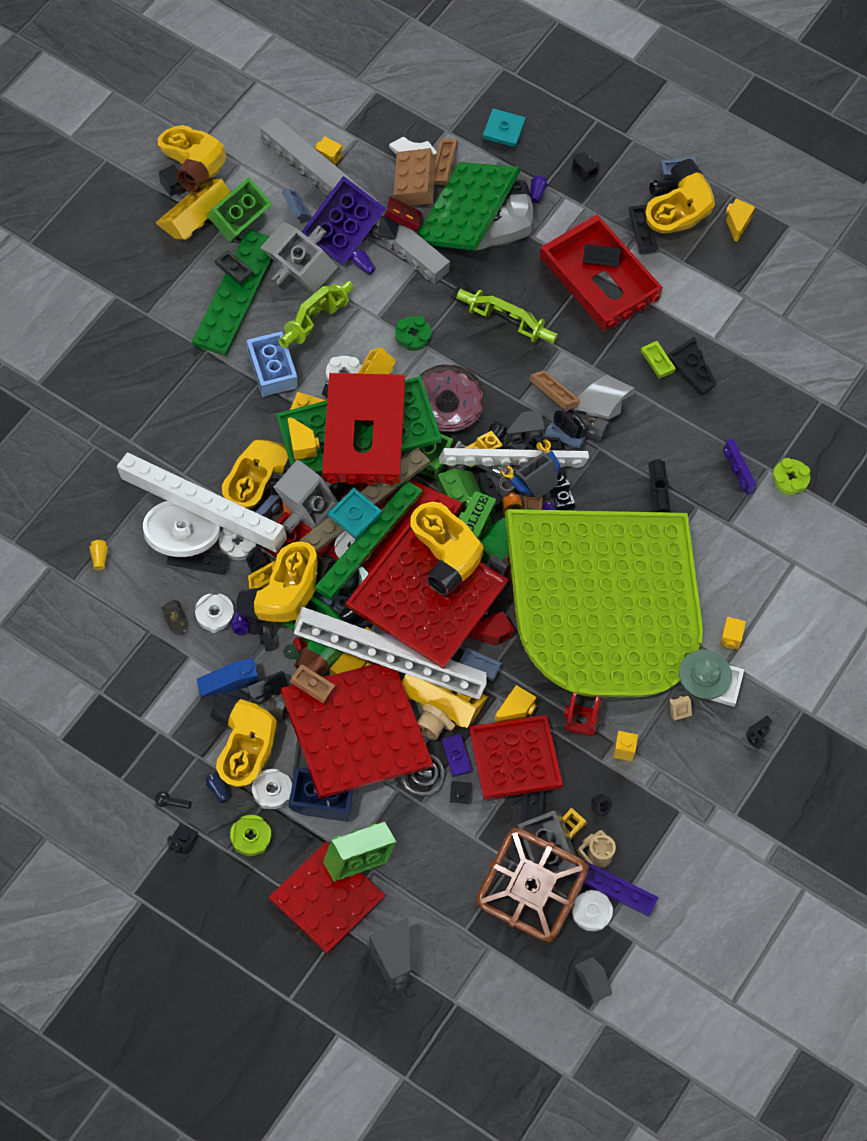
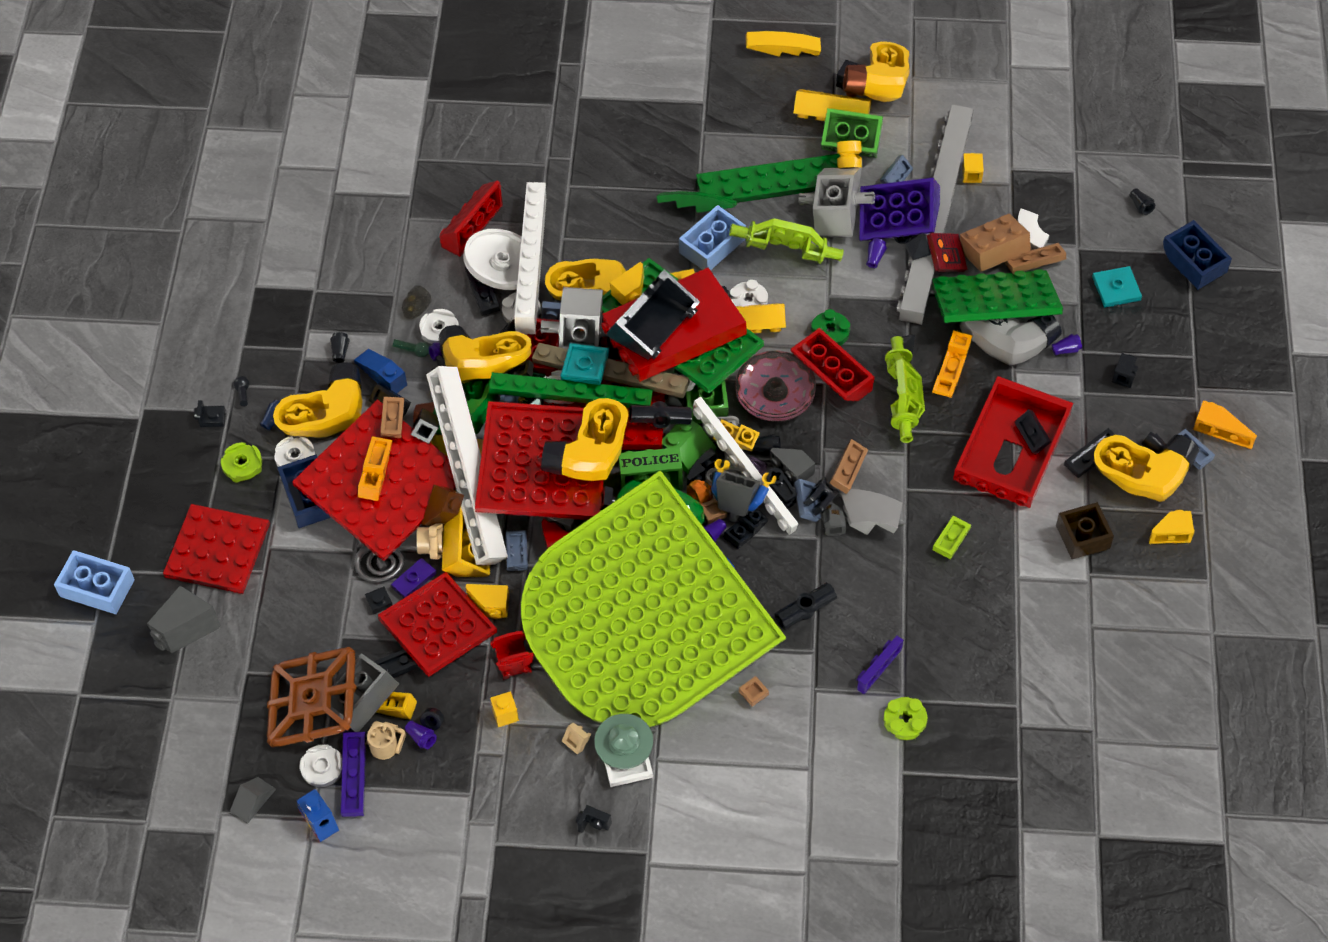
camera: 65 degrees right, 5 degrees down
(98, 553) = (440, 219): yellow cone -> none
(101, 205) = (778, 42): none -> yellow slope
(118, 528) = (472, 217): none -> red slope
(181, 699) = (339, 346): none -> black cone
(224, 639) = (419, 349): none -> clear green bar
(227, 350) = (703, 201): none -> green slope
(234, 267) = (789, 160): pearl dark grey plate -> none
(262, 220) = (849, 154): none -> yellow wheel
(305, 1011) = (94, 582): none -> light blue brick
(332, 664) = (425, 426): none -> black brick
(353, 723) = (374, 468): none -> light orange slope
(356, 435) = (654, 316): none -> black windscreen
(359, 851) = (262, 541): bright green brick -> none
(414, 691) = (442, 505): none -> reddish brown slope
(437, 486) = (660, 414): none -> black piece
(439, 65) = (1142, 201): none -> black cone
(457, 346) = (834, 366): none -> red slope
(504, 272) = (952, 364): none -> light orange slope
(516, 61) = (1196, 254): none -> dark blue brick
(610, 820) = (421, 735): none -> dark purple cone
(641, 932) = (314, 812): none -> blue torso
(671, 136) = (1220, 423): none -> light orange slope
(691, 365) = (967, 570): black wing -> none
(709, 272) = (1084, 530): none -> dark brown brick
(711, 563) = (753, 691): none -> medium nougat plate
(732, 633) = (686, 745): yellow brick -> none

